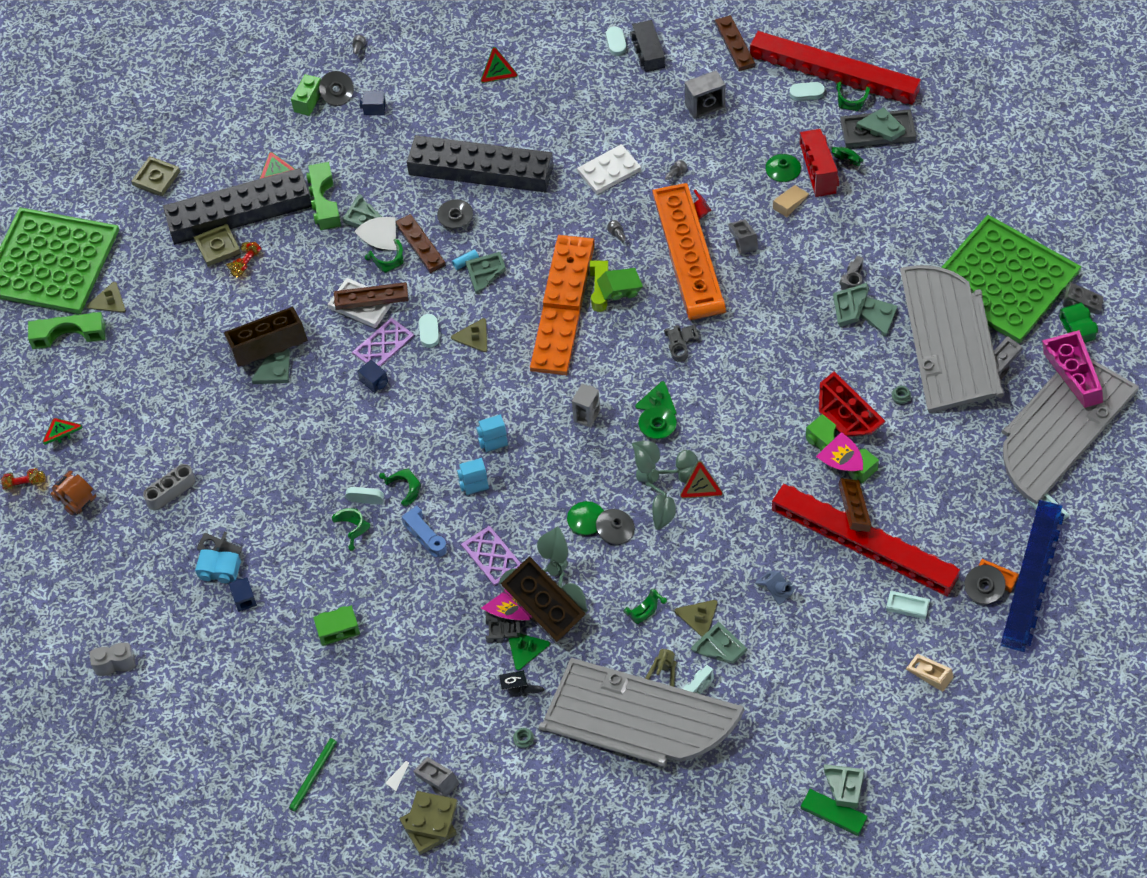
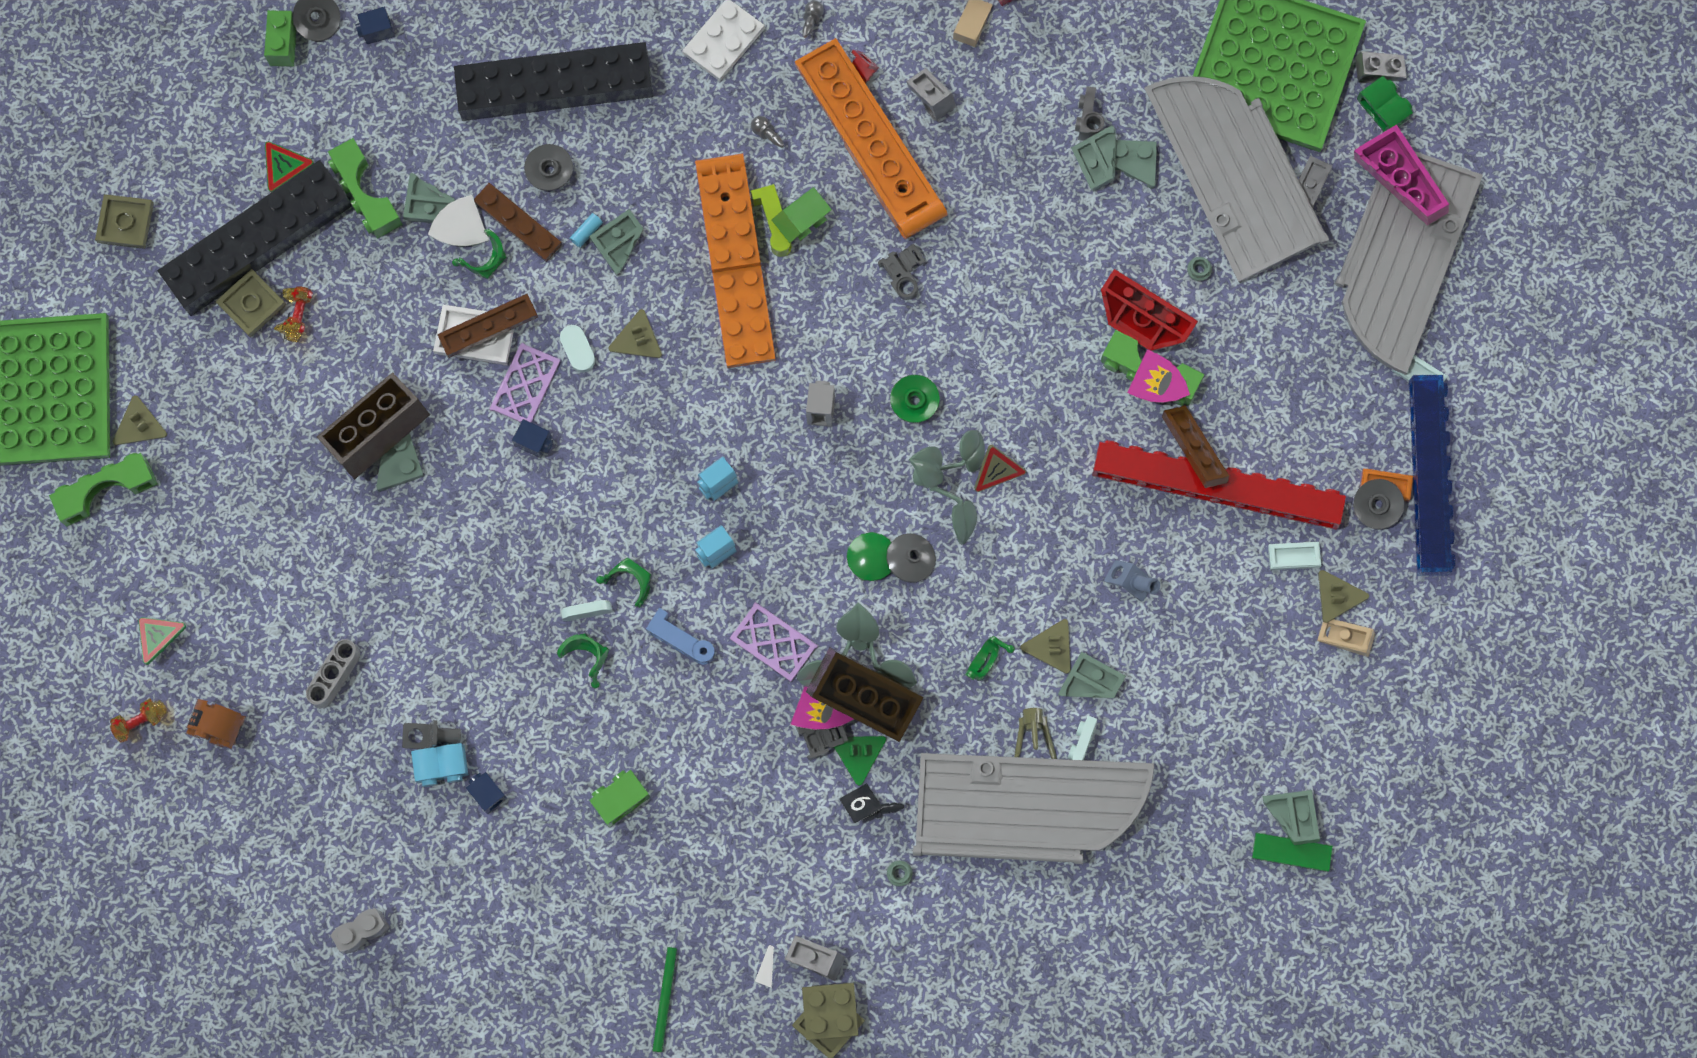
camera: 20 degrees left, 20 degrees up
(657, 397) = (901, 363): green piece -> none
(932, 642) = (1337, 596): none -> olive piece

